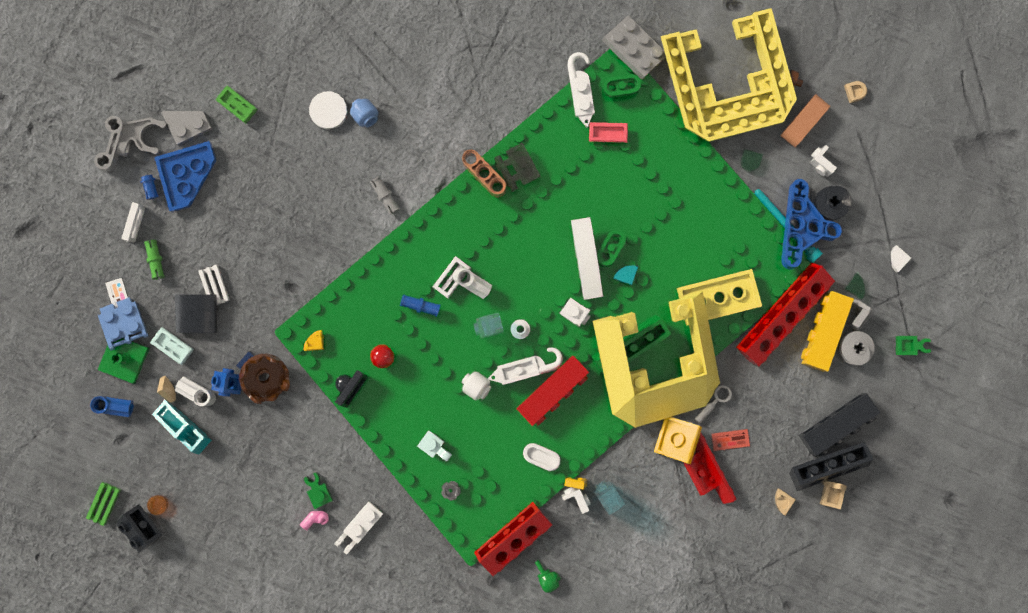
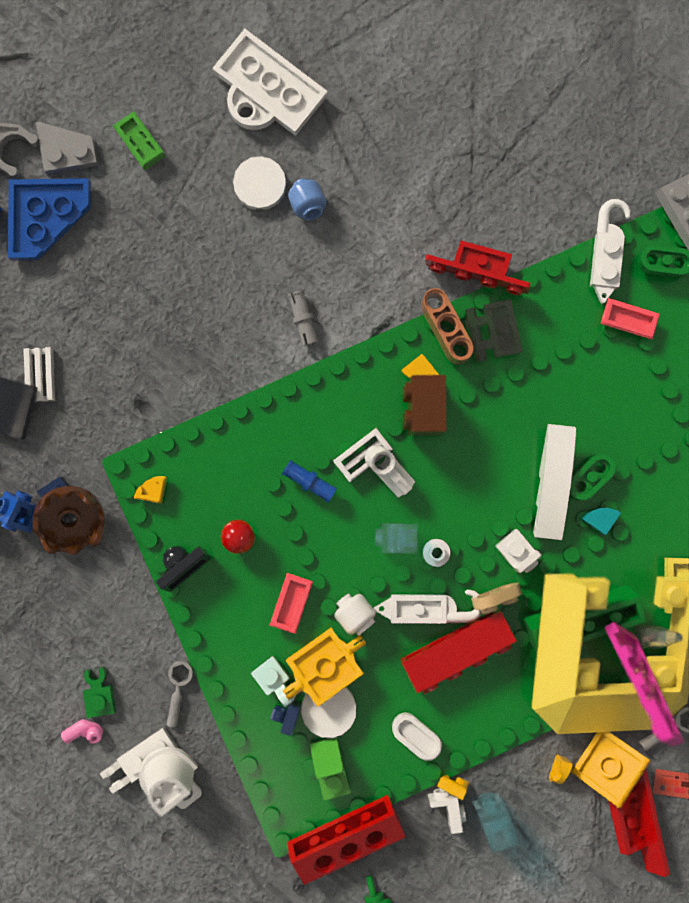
camera: 10 degrees right, 0 degrees up
(314, 41) = (267, 86): none -> white plate
(371, 479) = (176, 698): none -> light grey piece
(380, 531) = (168, 779): none -> white container
(431, 391) = (291, 603): none -> coral tile
(450, 467) = (287, 717): none -> dark blue tile
(451, 485) = (274, 753): flat silver plate -> none
(465, 427) = (324, 667): none -> yellow plate
(474, 208) = (419, 366): none -> yellow tile
(476, 455) = (332, 717): none -> white tile
(484, 231) = (425, 405): none -> reddish brown brick
(488, 494) = (329, 768): none -> bright green slope
(496, 123) = (480, 264): none -> red bracket
(574, 344) = (489, 600): none -> tan plate
(645, 452) = (560, 769): none -> yellow tile
(677, 372) = (645, 683): none -> dark pink wing
(682, 344) = (656, 636): none -> clear slope

